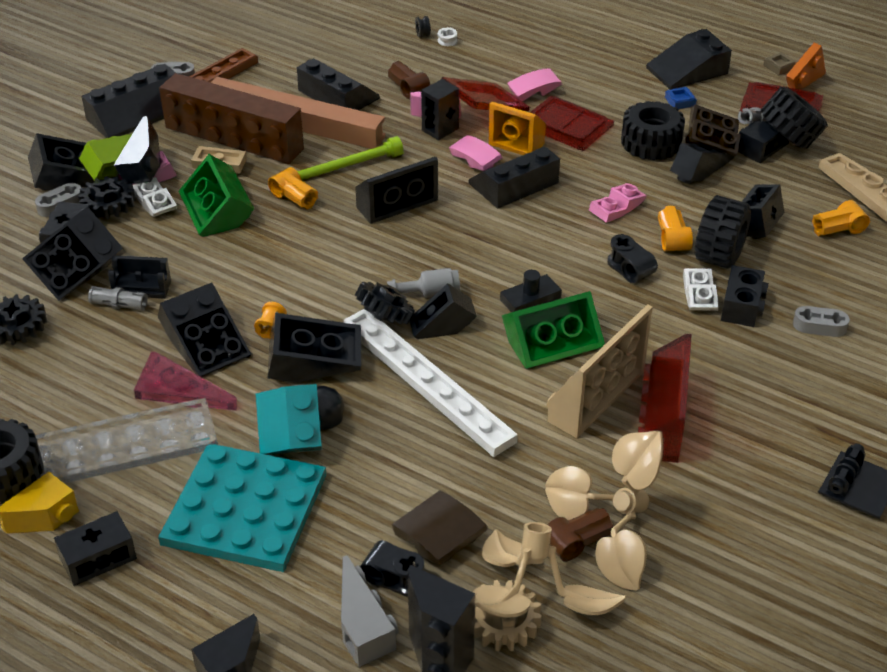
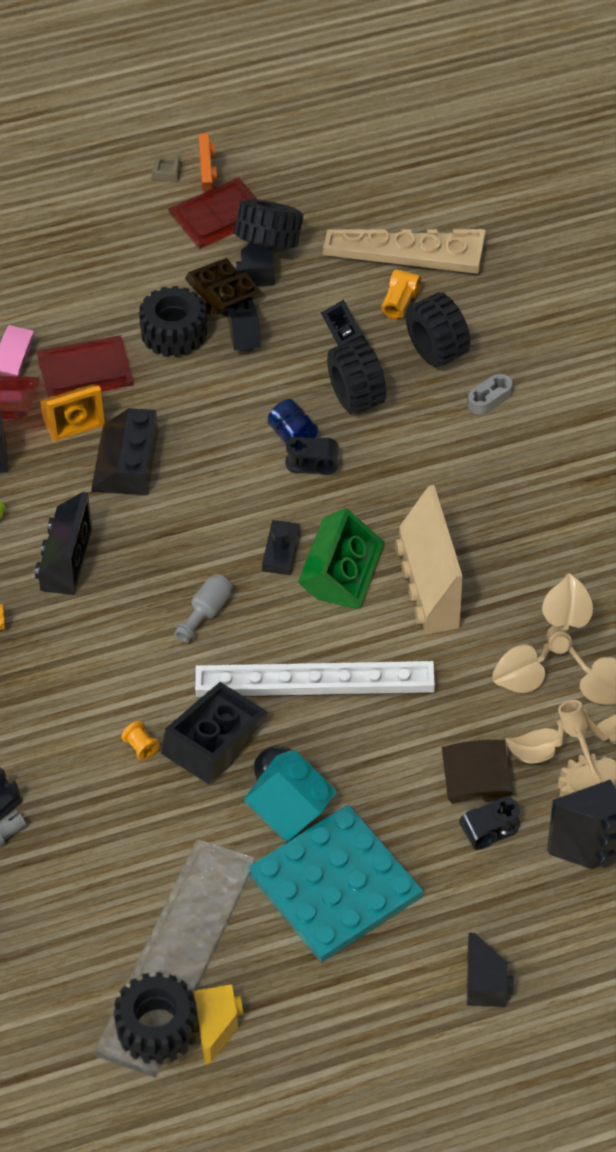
camera: 50 degrees left, 10 degrees up
(95, 548) = (298, 1021): black brick -> none
(171, 383) = (147, 855): clear pink wing -> none
(202, 330) = (107, 795): black slope -> none
(365, 626) = (521, 872): light grey slope -> none
(384, 302) = (208, 648): black gear -> none
(443, 314) = (254, 621): black slope -> none
(477, 152) = (69, 457): bright pink slope -> none
(573, 535) = (557, 688): reddish brown piece -> none
(619, 203) = (230, 412): bright pink slope -> none
(645, 228) = (290, 421): none -> clear blue wheel
(667, 395) = (492, 545): clear red slope -> none
(674, 233) = (315, 405): light orange piece -> none
(680, 98) = (138, 268): blue tile -> none
(691, 60) = (101, 223): black slope -> none
(700, 290) = (387, 441): white slope -> none
(743, 296) = (423, 418): black brick -> none
(750, 115) = (232, 244): light grey pin -> none
(827, 247) = (438, 329): none -> black tyre

